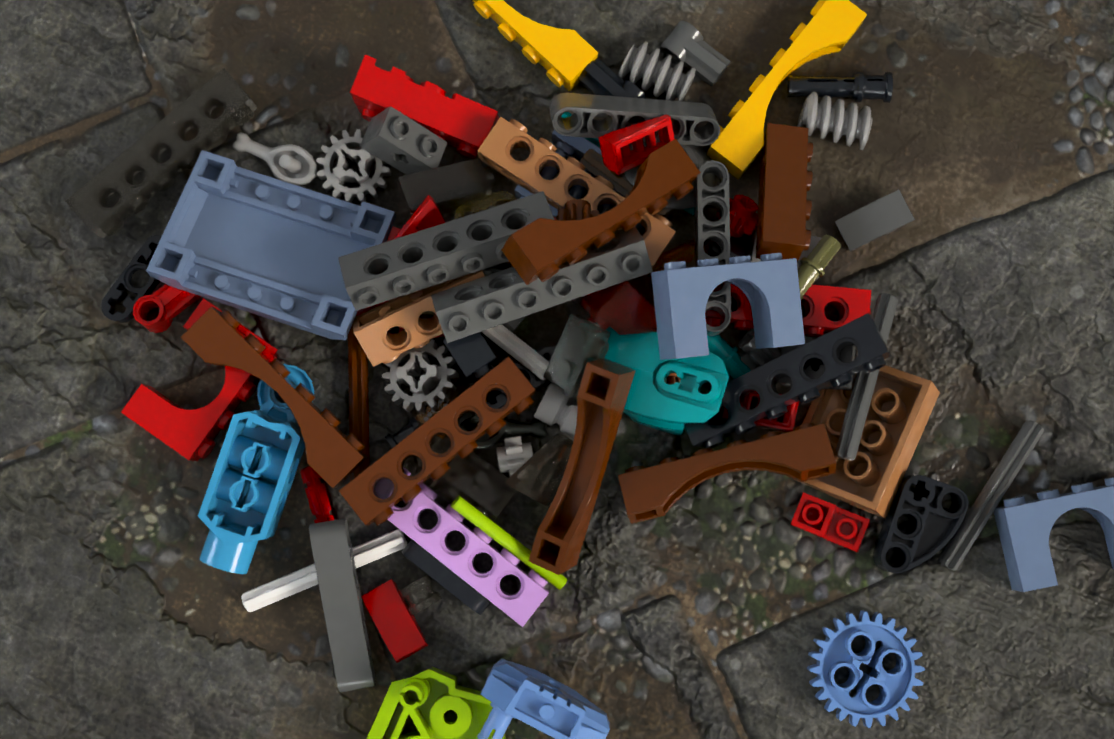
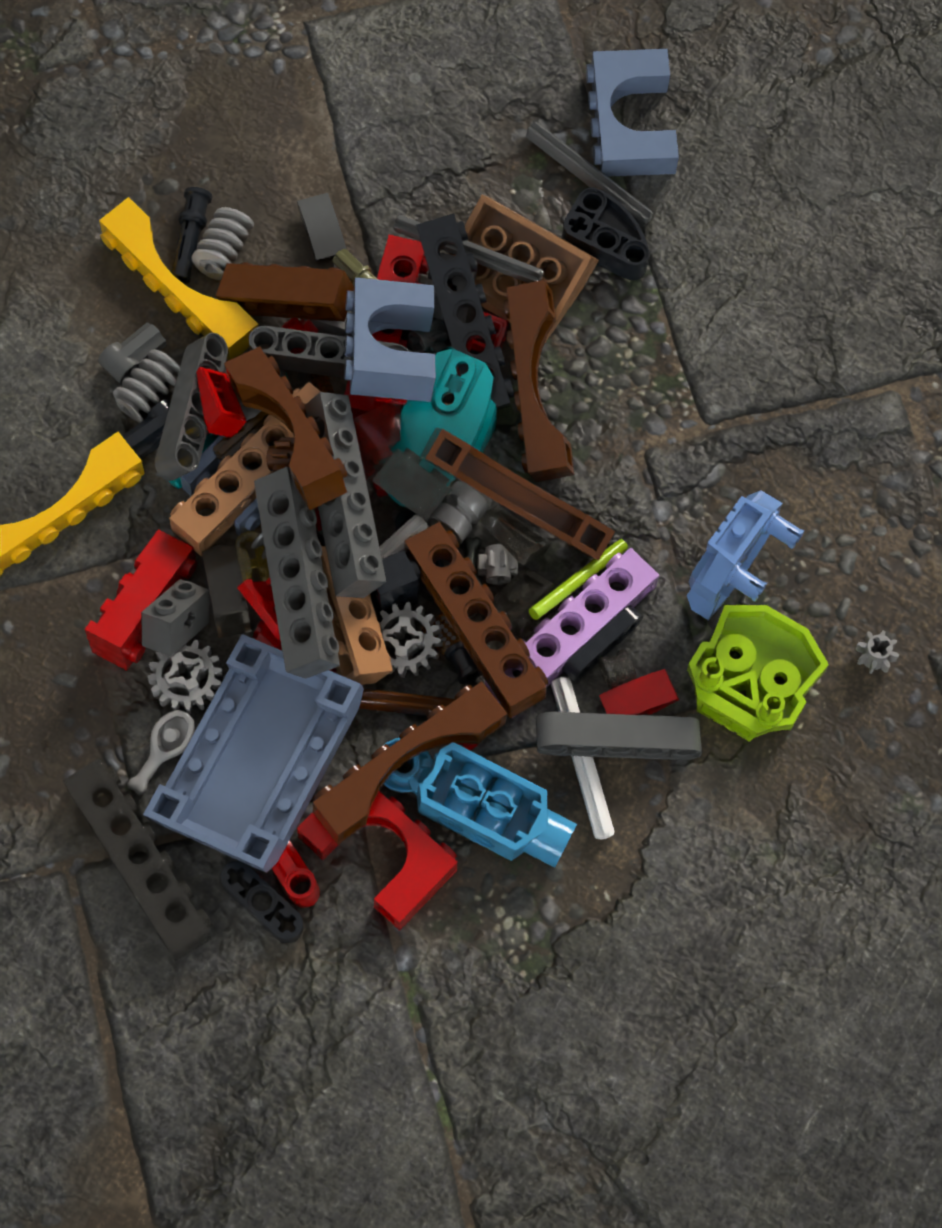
camera: 85 degrees left, 15 degrees down
(316, 495) = (512, 754): red axle -> none
(830, 522) = (596, 307): red slope -> none
(893, 684) = (747, 278): medium blue gear -> none

